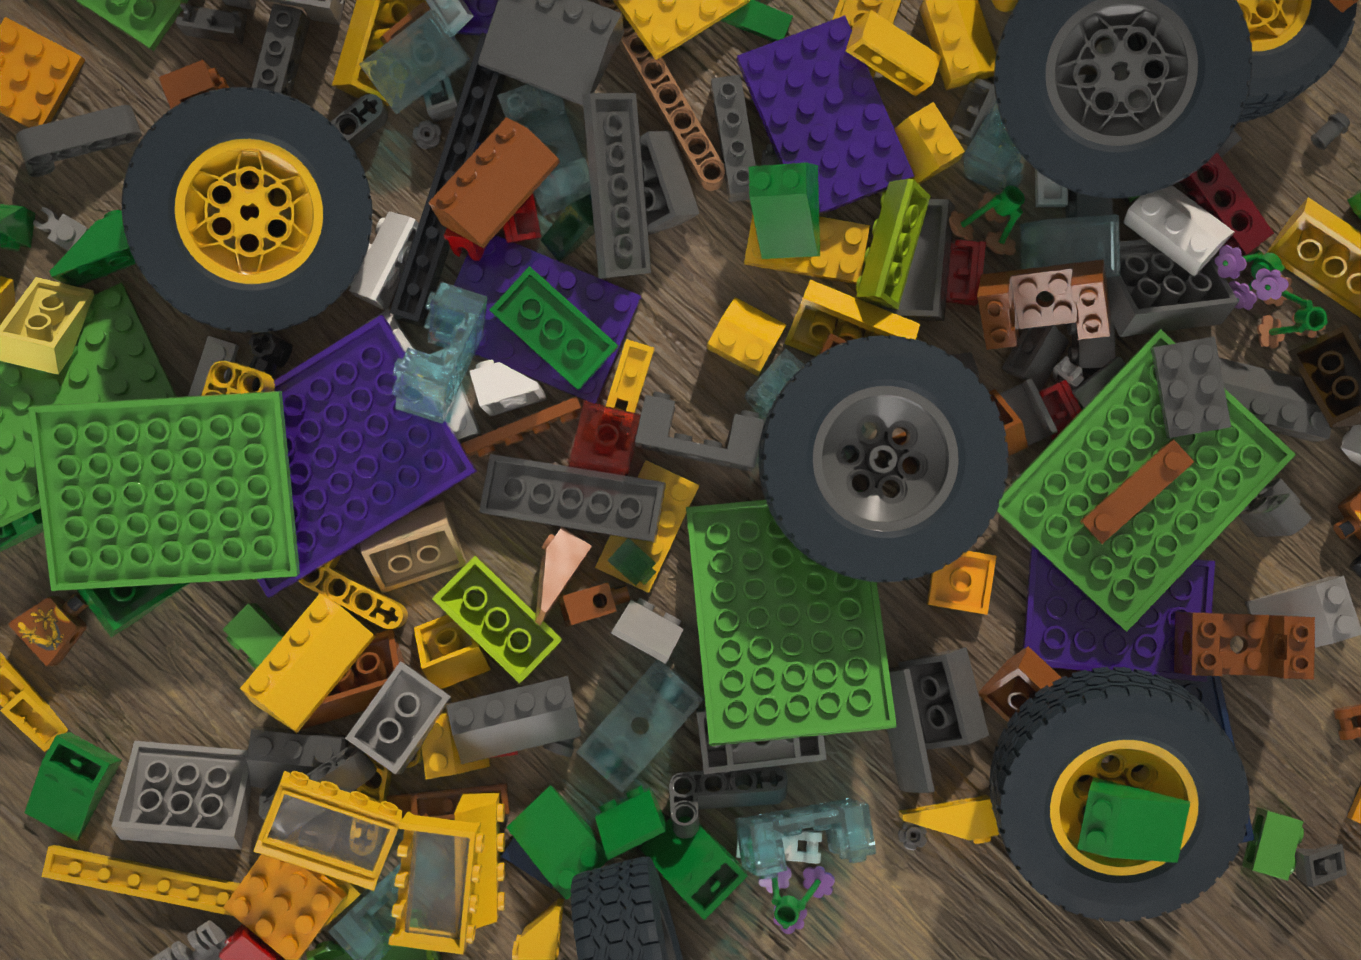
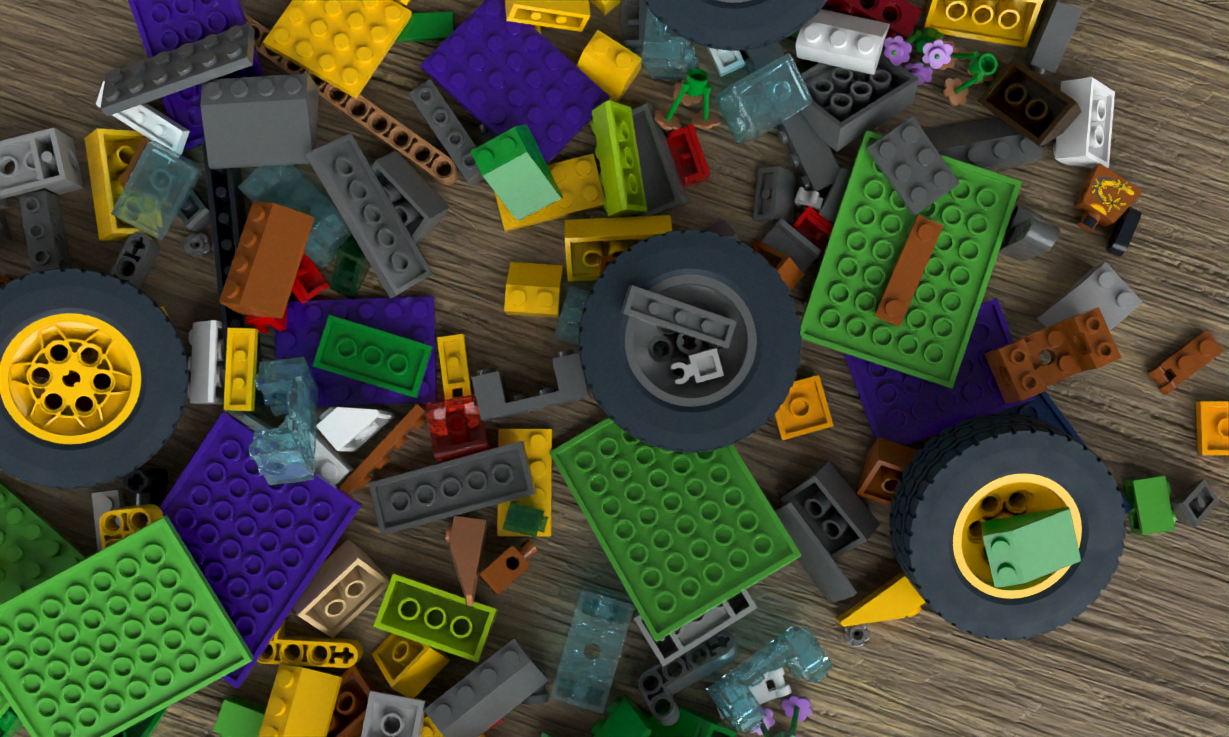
camera: 20 degrees left, 0 degrees up
(417, 280) = (240, 369): none -> yellow plate
(648, 630) = (563, 569): light grey slope -> none
(884, 429) = (678, 316): none -> dark grey plate
(884, 490) = (702, 366): none -> light grey plate
(1011, 302) = (736, 164): dark orange plate -> none

